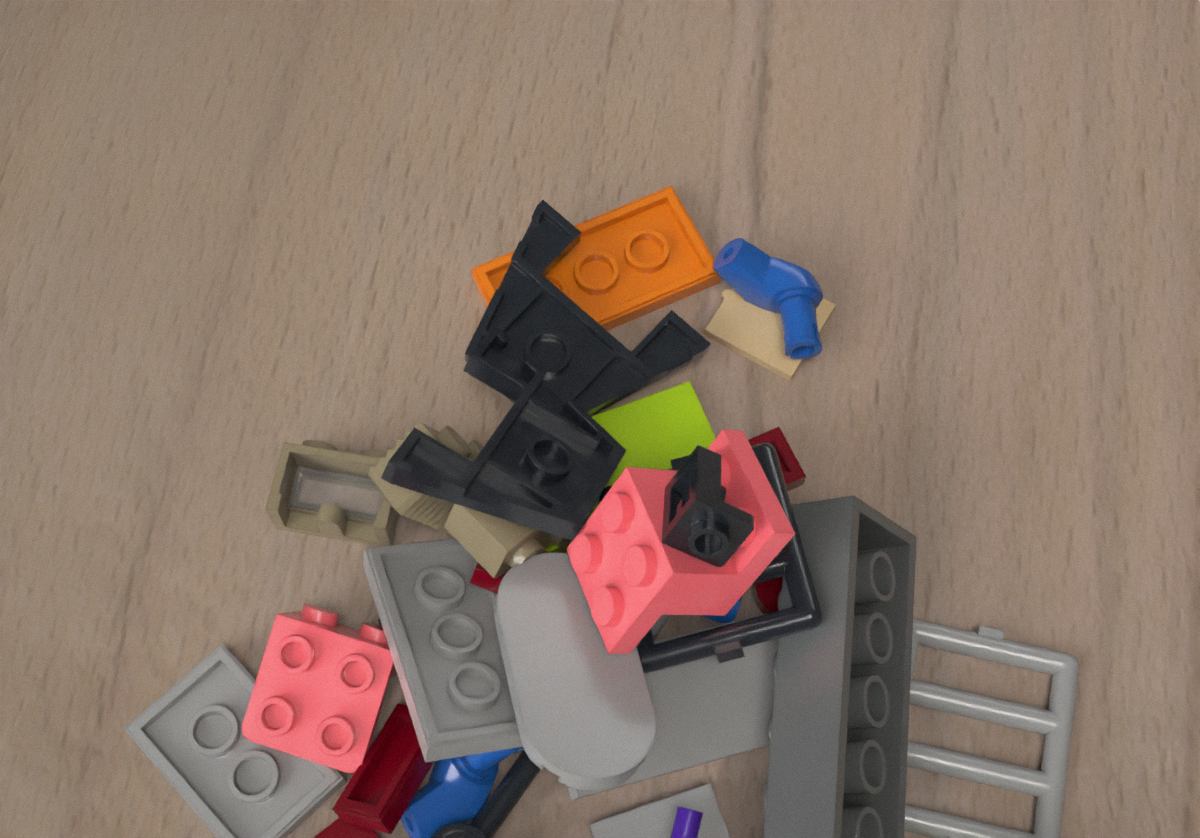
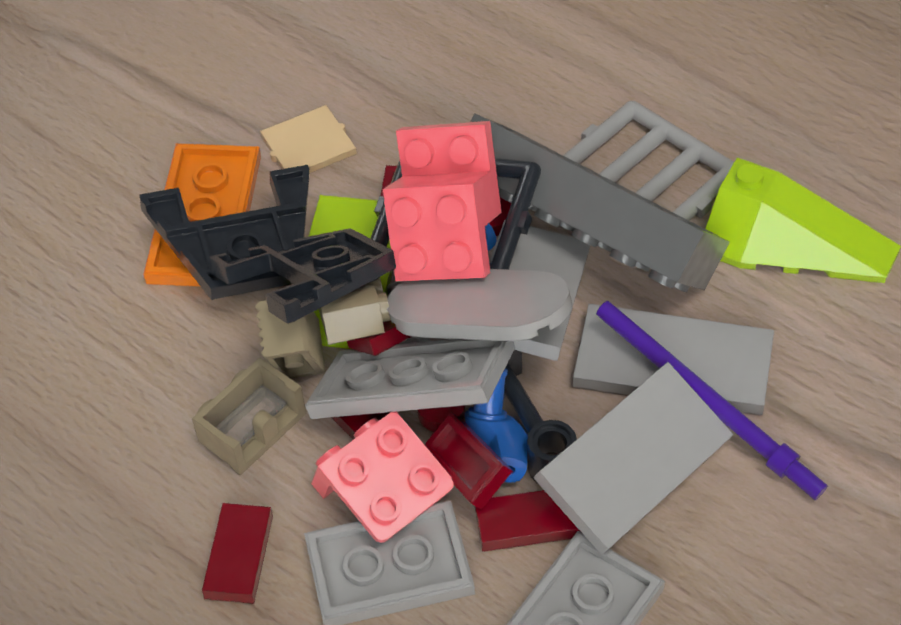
camera: 55 degrees left, 15 degrees down
(169, 589) = (237, 553): none -> dark red tile
(696, 514) = (441, 156): black bracket -> none
(778, 289) = (297, 118): blue arm -> none

